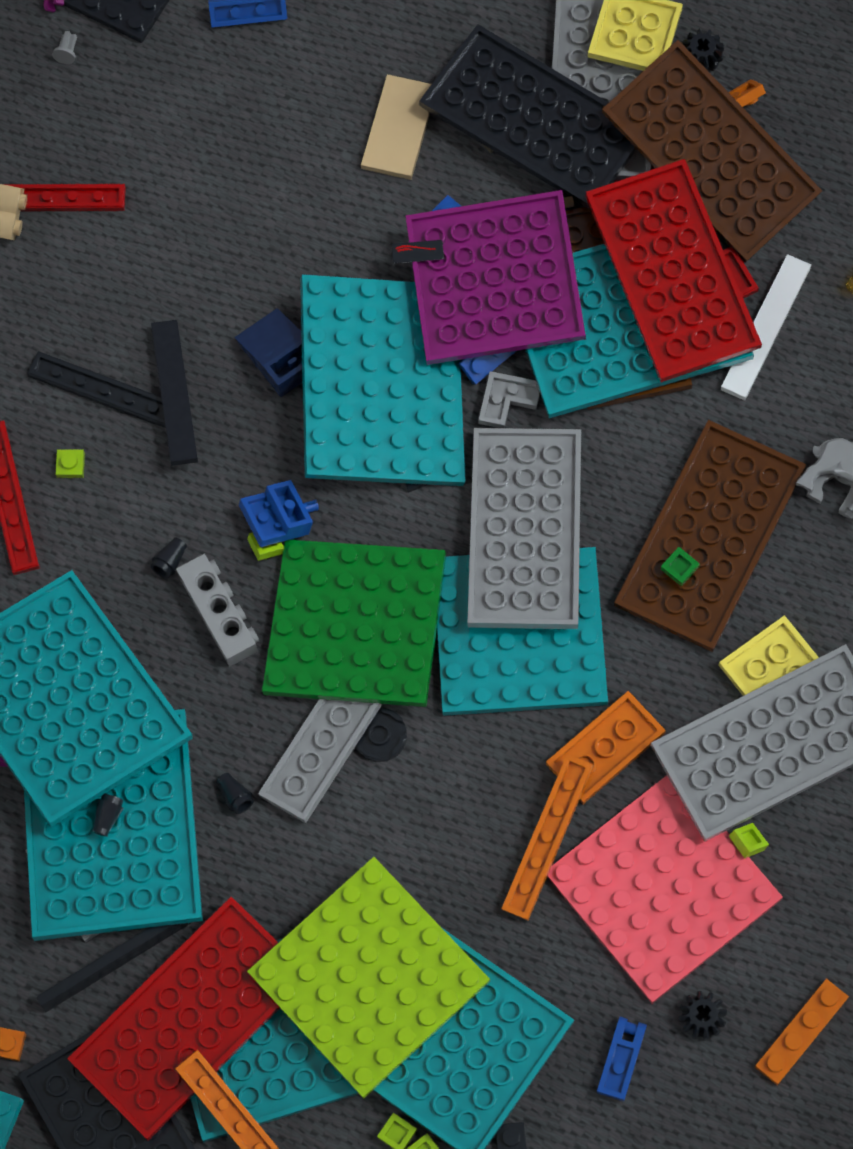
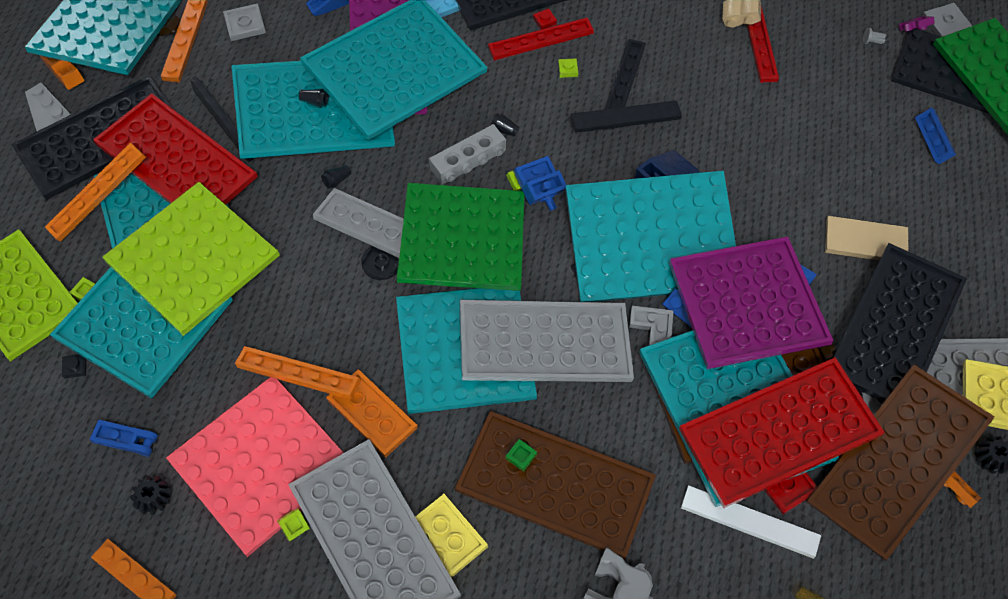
camera: 80 degrees right, 10 degrees down
(417, 251) = (759, 246): black sticker -> none

